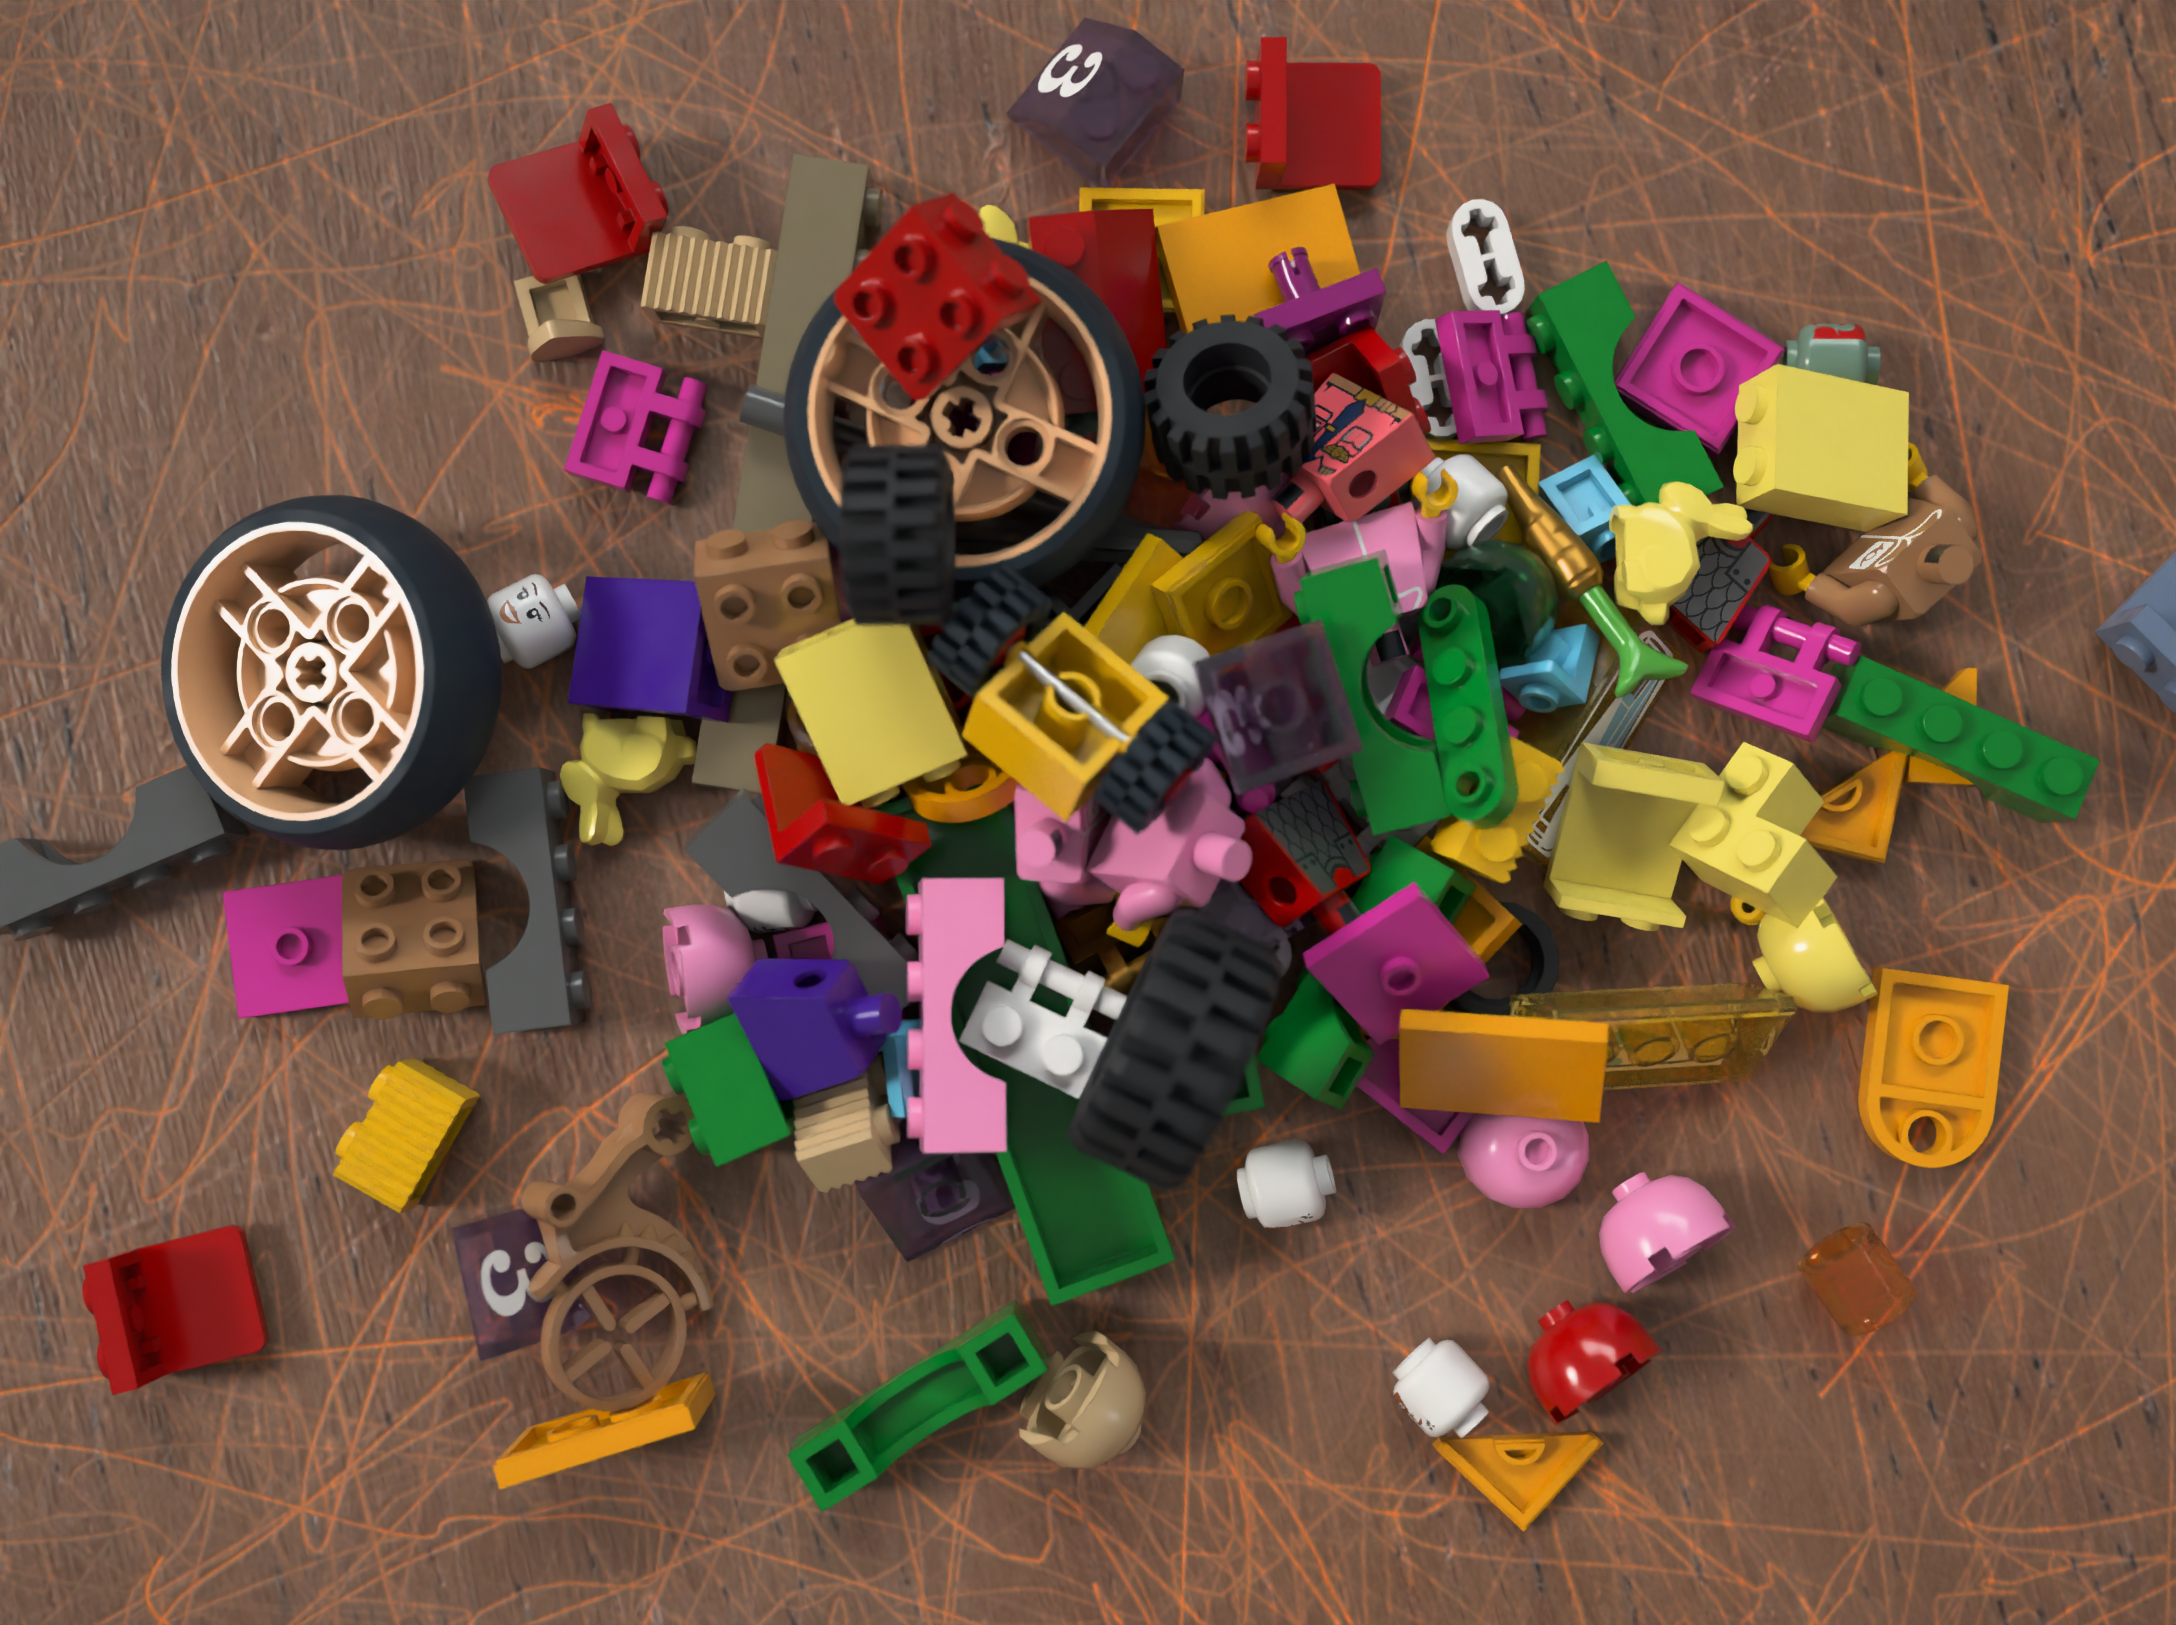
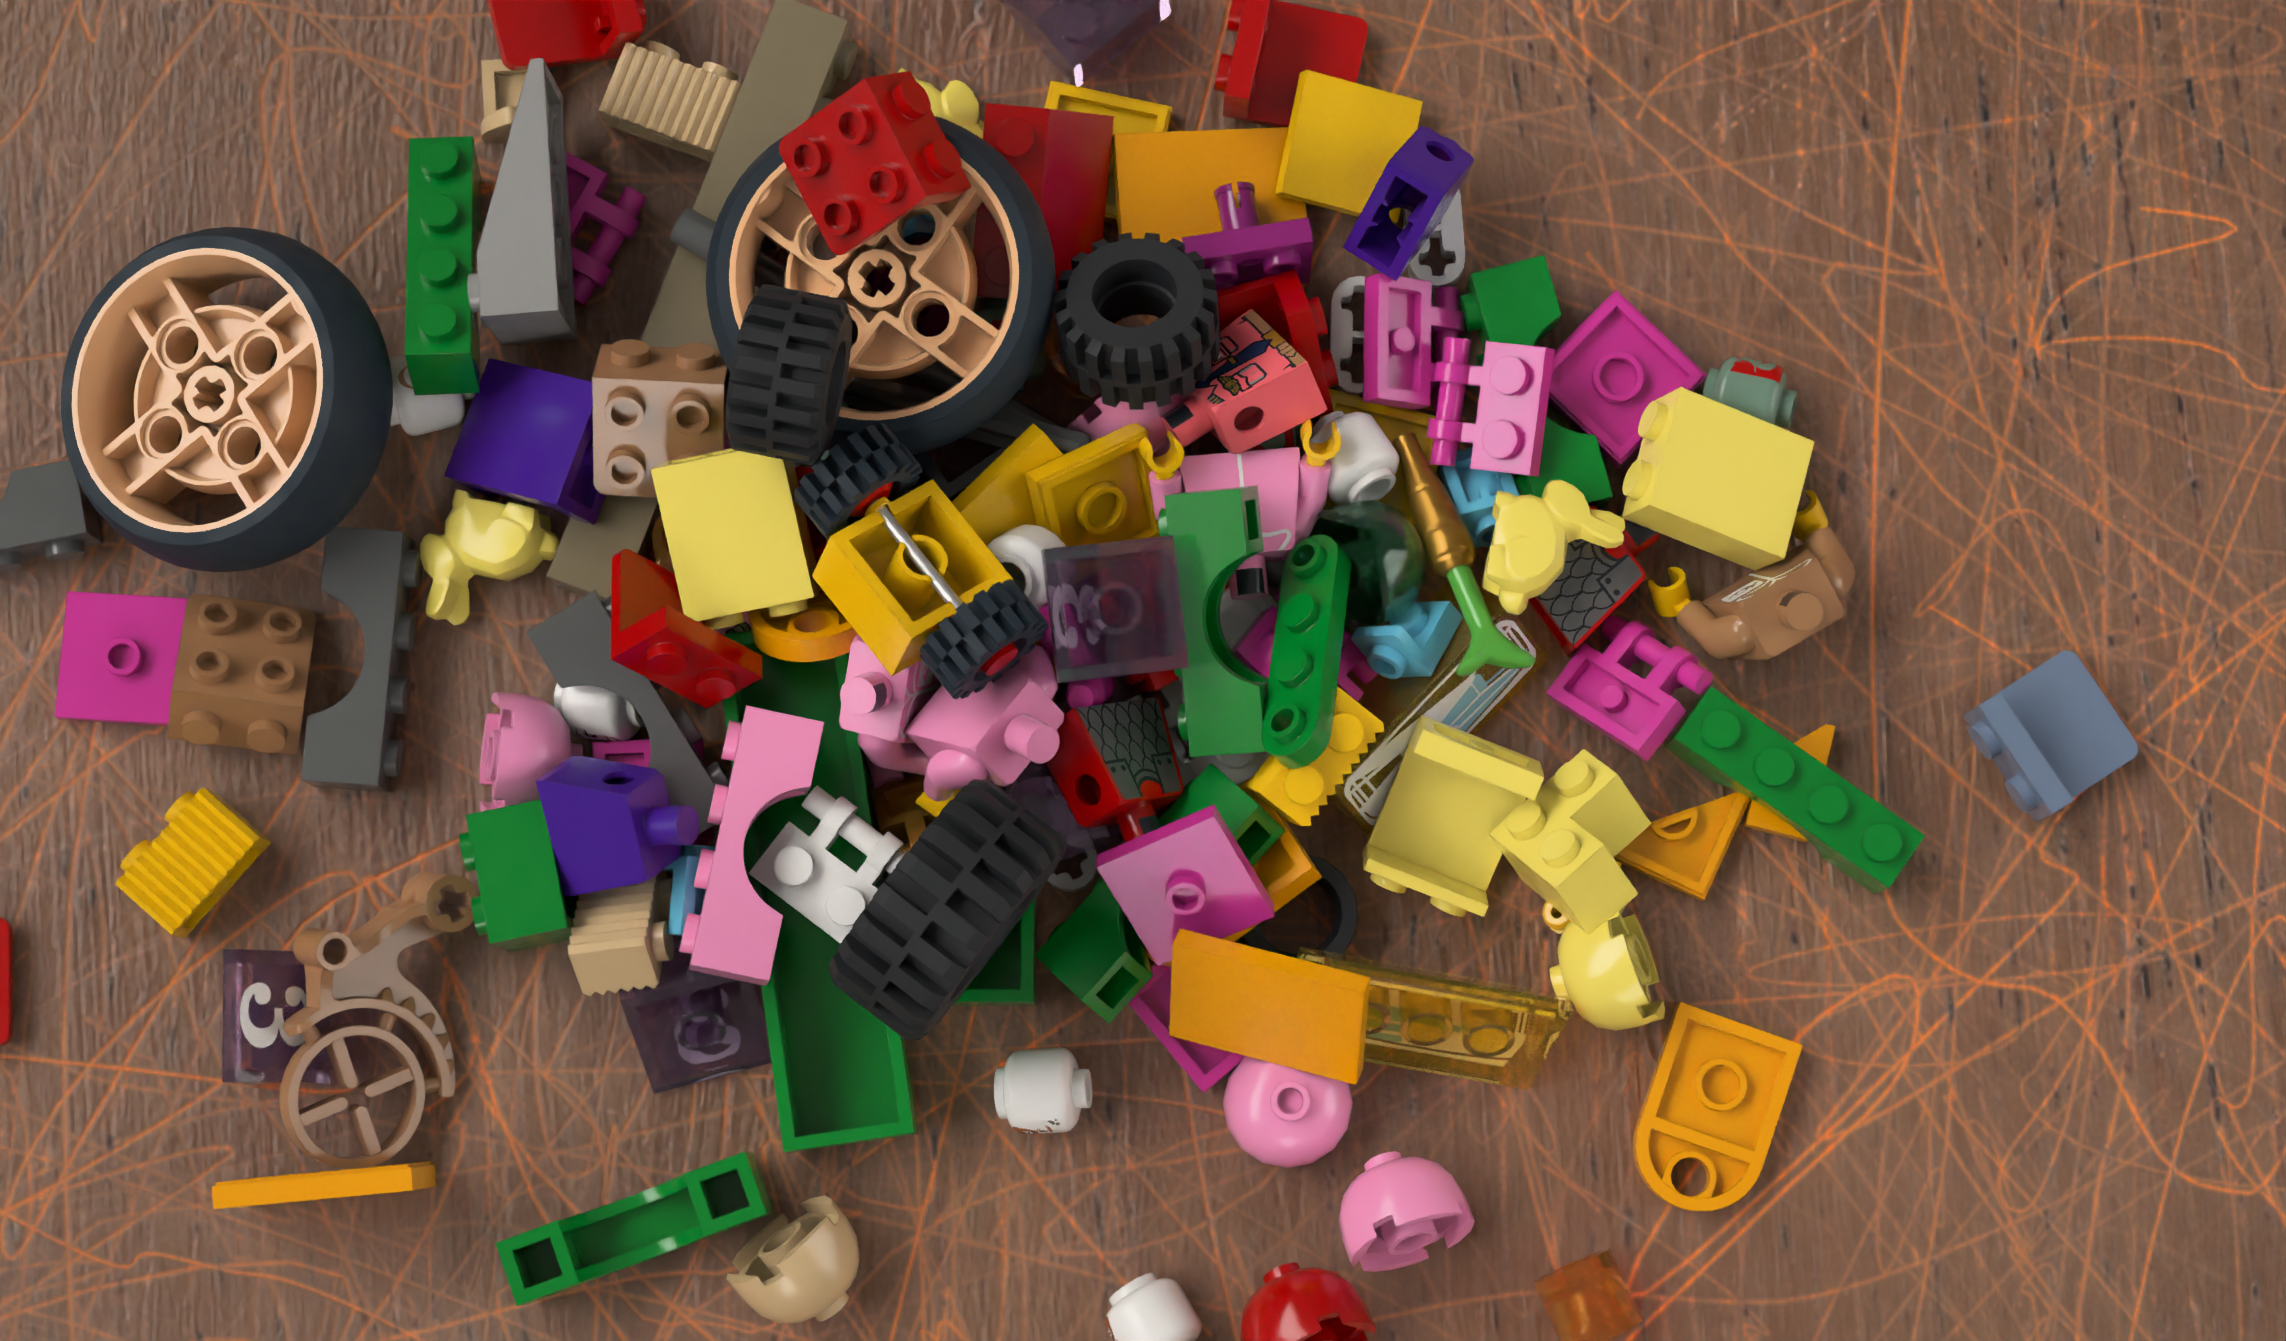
camera: 15 degrees right, 5 degrees down
(518, 505) = (441, 237): none -> green arch
(596, 452) = (526, 240): none -> light grey slope
(1387, 193) = (1342, 141): none -> yellow tile
(1477, 217) = (1417, 178): none -> dark purple torso
(1607, 421) = (1509, 408): none -> plate

